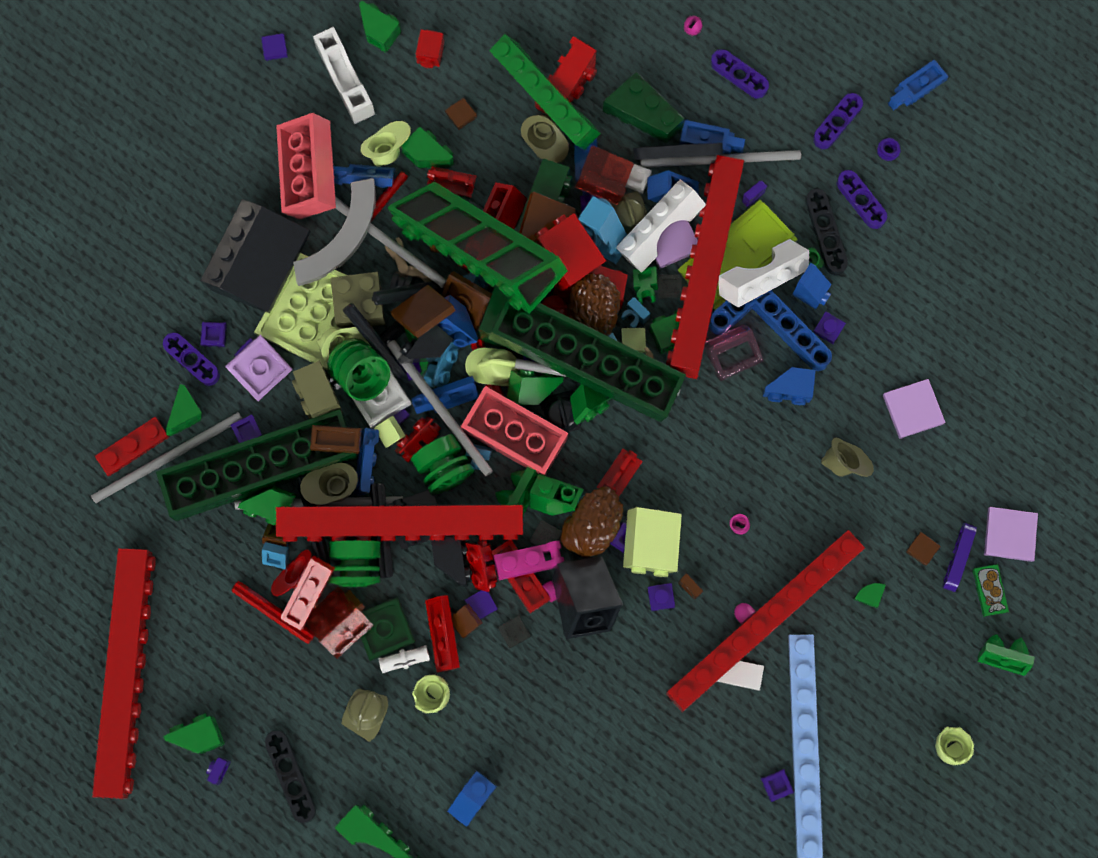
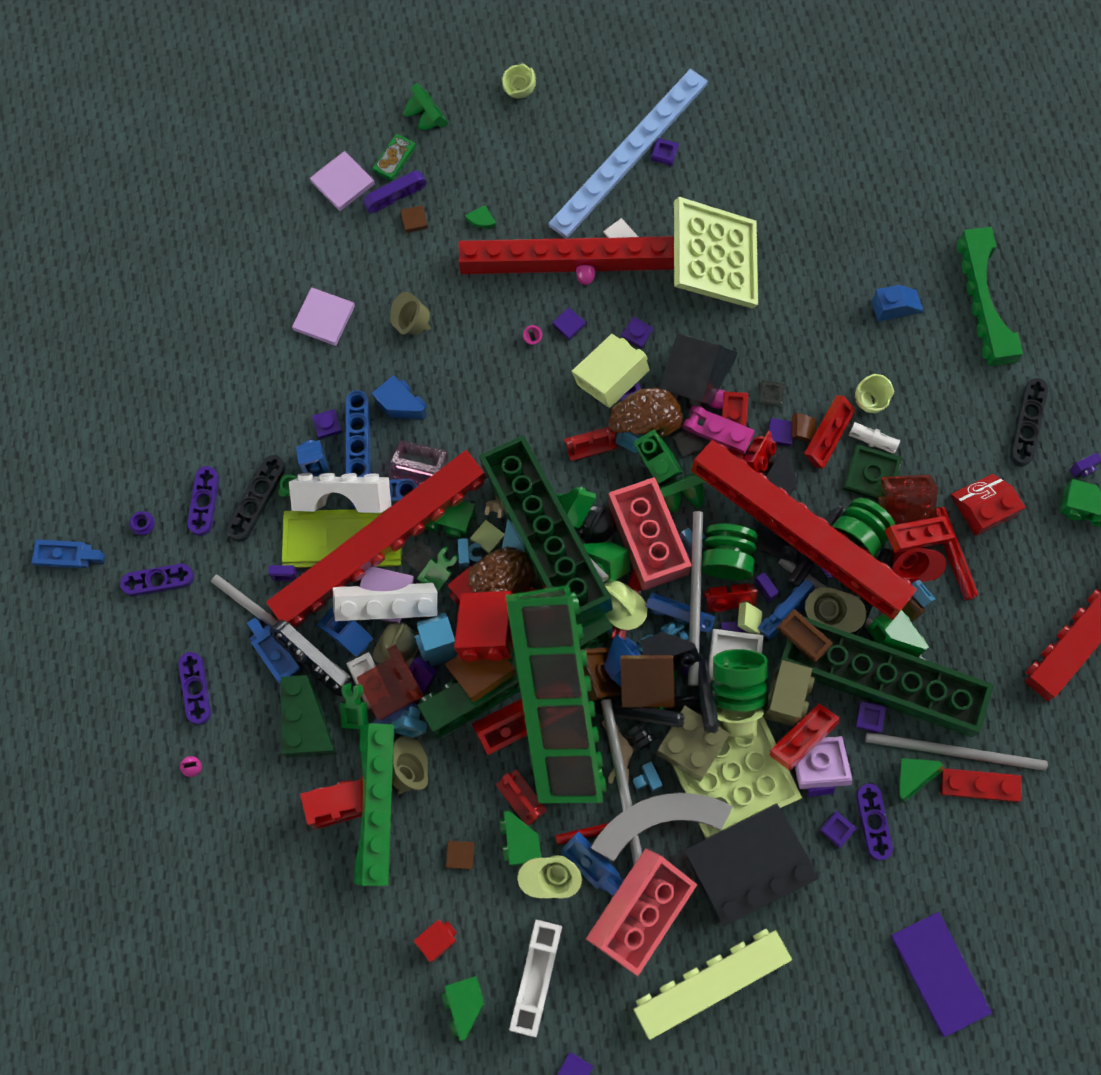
camera: 140 degrees left, 5 degrees down
(73, 293) = (941, 974): none -> dark purple tile
(224, 164) = (712, 984): none -> yellowish green brick
(276, 673) = (987, 503): none -> red slope
(283, 364) = (804, 737): none -> red plate
(365, 713) = (934, 424): olive piece -> none
(373, 261) = (649, 778): none -> dark azure tile
(395, 465) = (766, 587): none -> dark purple tile
(569, 159) = (409, 723): none -> dark azure tile
(617, 142) = (352, 709): none -> green plate
(652, 710) = (715, 253): none -> yellowish green plate
(690, 586) = (610, 324): reddish brown tile -> none
(721, 560) = (569, 323): none -> dark purple tile

